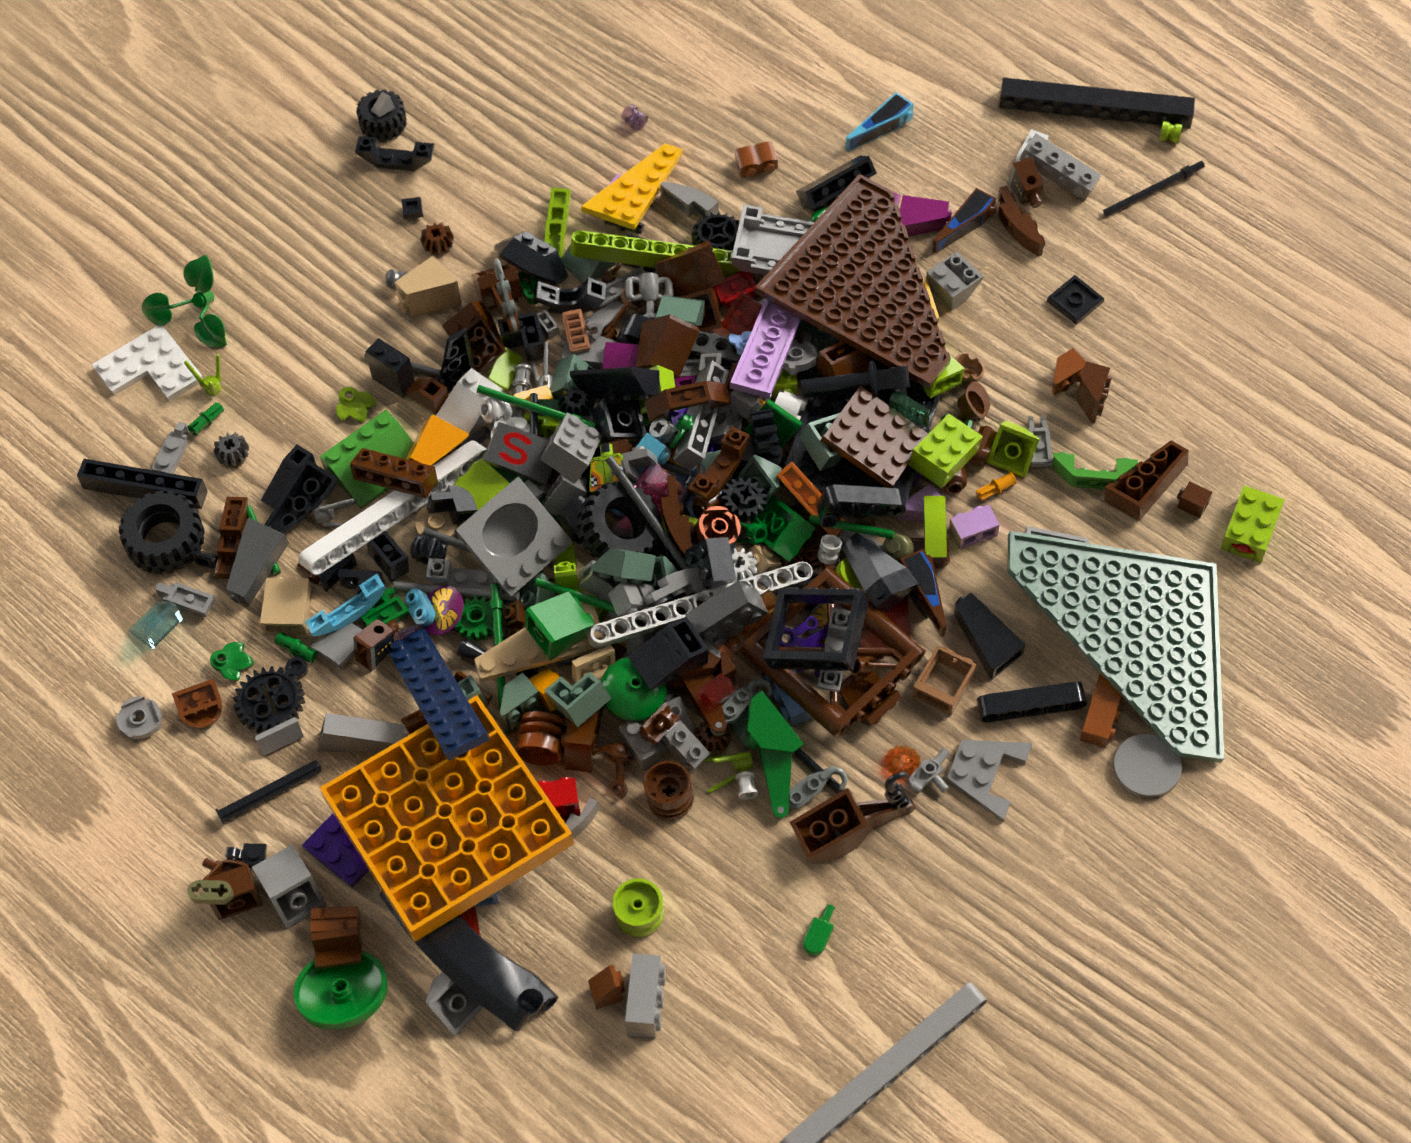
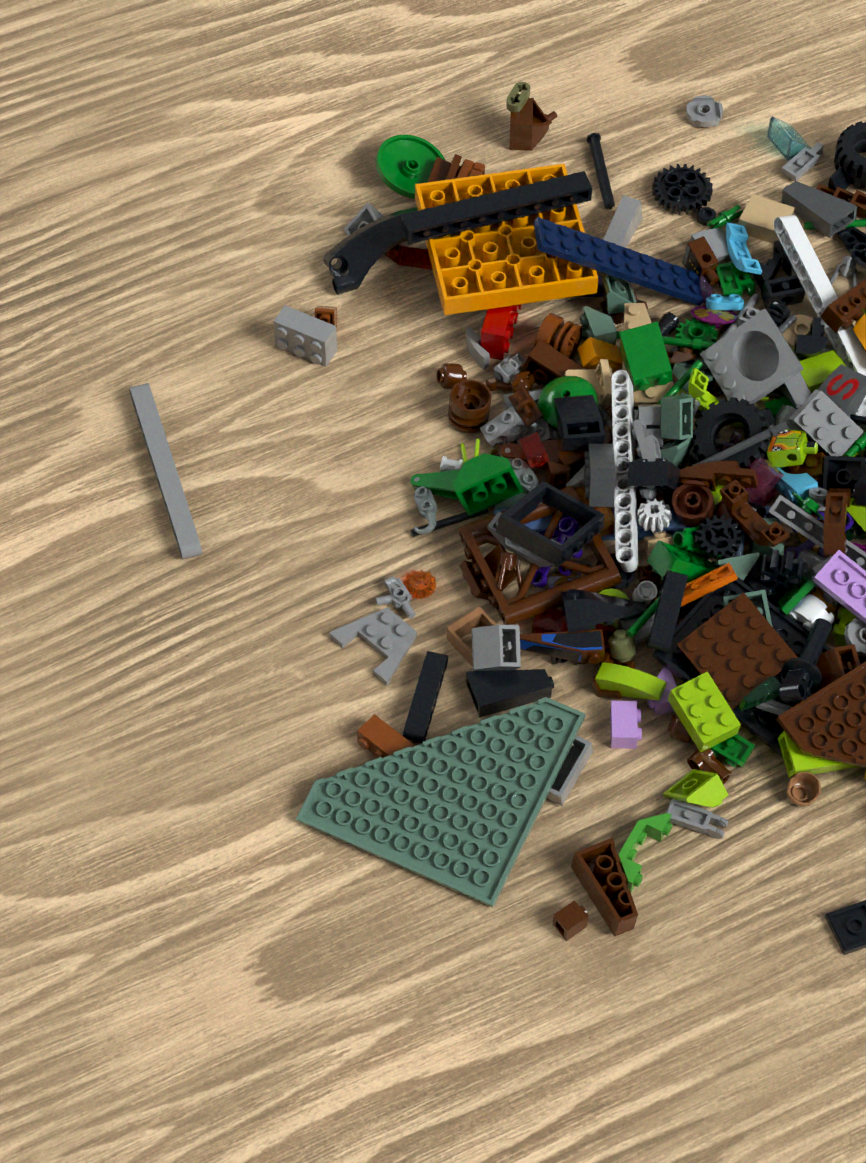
camera: 110 degrees right, 5 degrees down
(199, 704) = (698, 148): dark orange slope -> none
(234, 660) = (730, 179): green plate -> none
(250, 855) = (552, 150): black plate -> none
(279, 736) = (645, 186): light grey tile -> none
(289, 886) = (512, 154): light grey slope -> none
(423, 825) = (496, 207): none -> black brick
(579, 700) = (570, 351): sand green brick -> none
(598, 777) = (508, 367): none -> light grey hips
(629, 830) = (450, 374): none -> reddish brown head
(636, 459) = (783, 458): light grey bracket -> none
(638, 907) = (380, 357): lime wheel -> none
(819, 933) = (301, 472): green piece -> none
(843, 823) = (378, 502): reddish brown slope -> none
(962, 643) = (496, 648): none -> light grey slope
(974, 402) = (761, 779): reddish brown piece -> none
(996, 486) = (661, 763): light orange axle -> none
(1067, 371) = (766, 874): dark orange slope -> none
(1093, 389) = (728, 878): reddish brown slope -> none
(1147, 766) = (320, 757): light grey tile -> none
(1252, 524) = (520, 956): lime piece -> none

